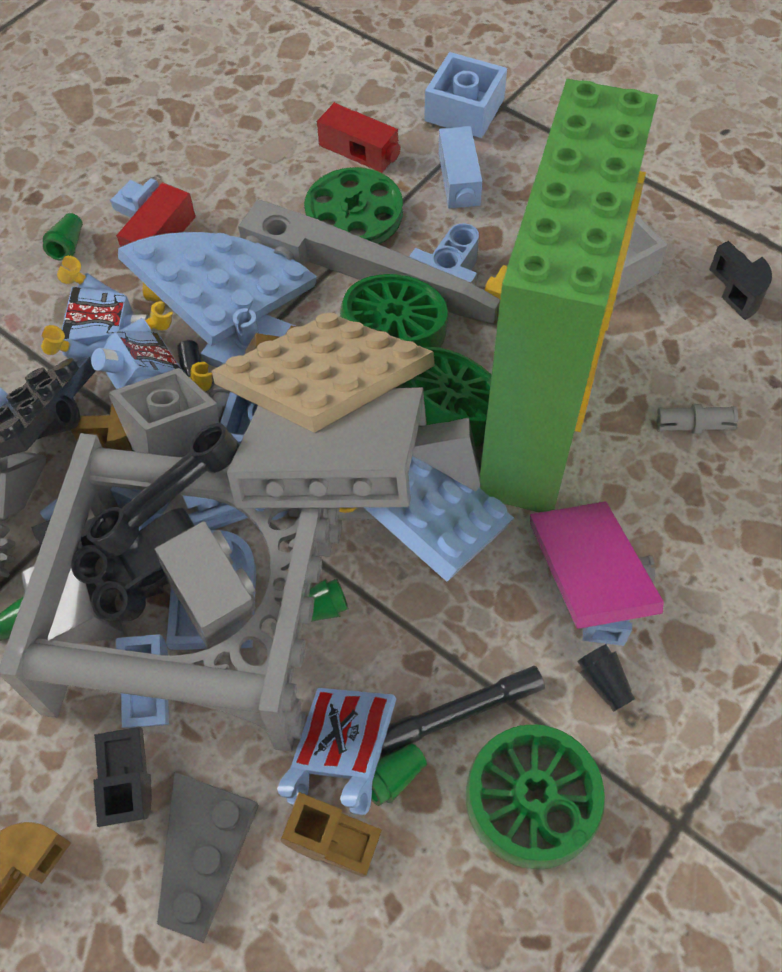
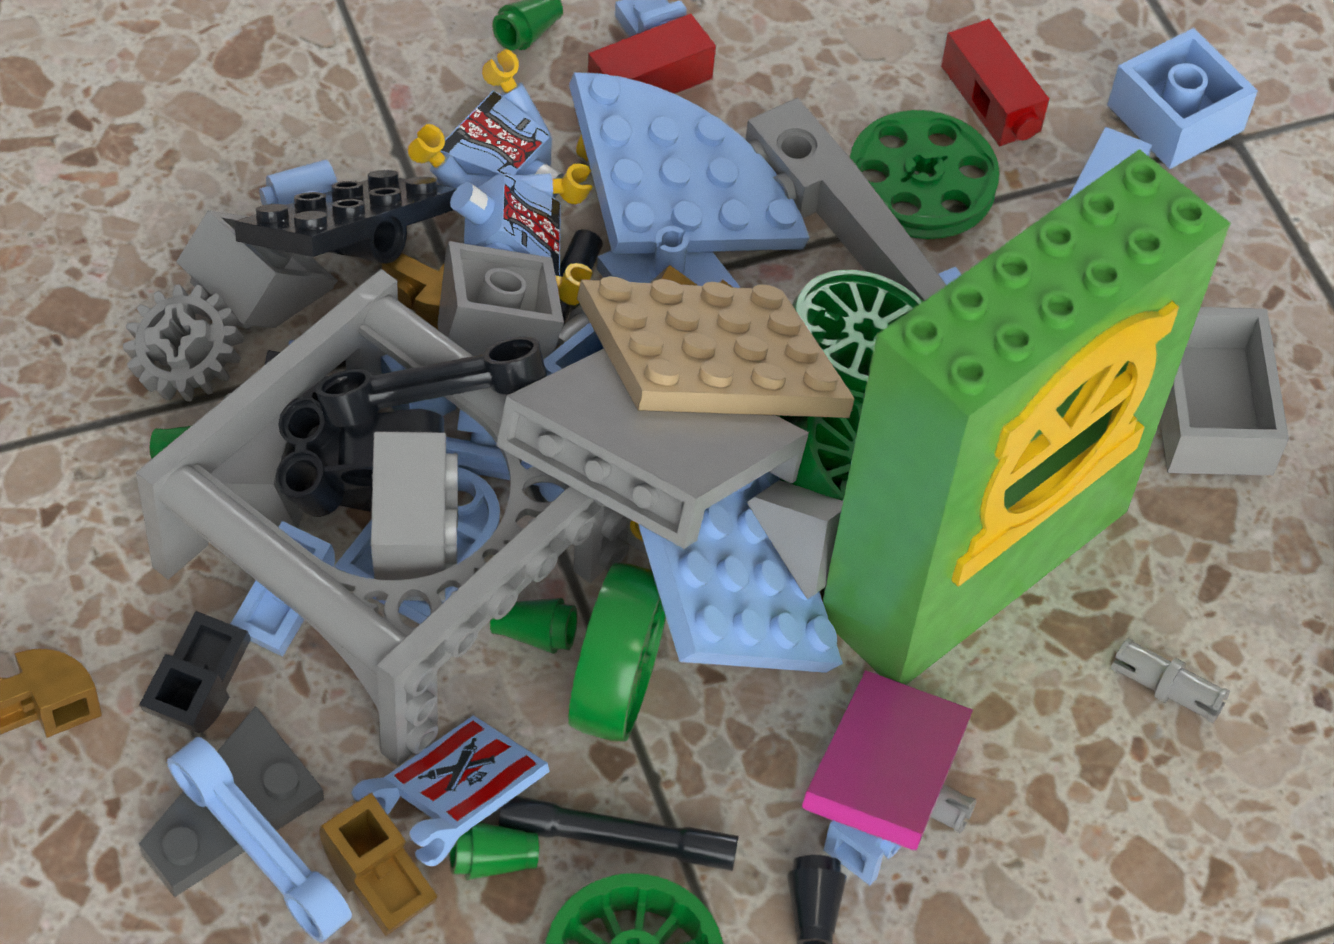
camera: 25 degrees right, 5 degrees down
(188, 855) = (307, 894): none -> light blue piece
(393, 595) = (617, 654): none -> green piece

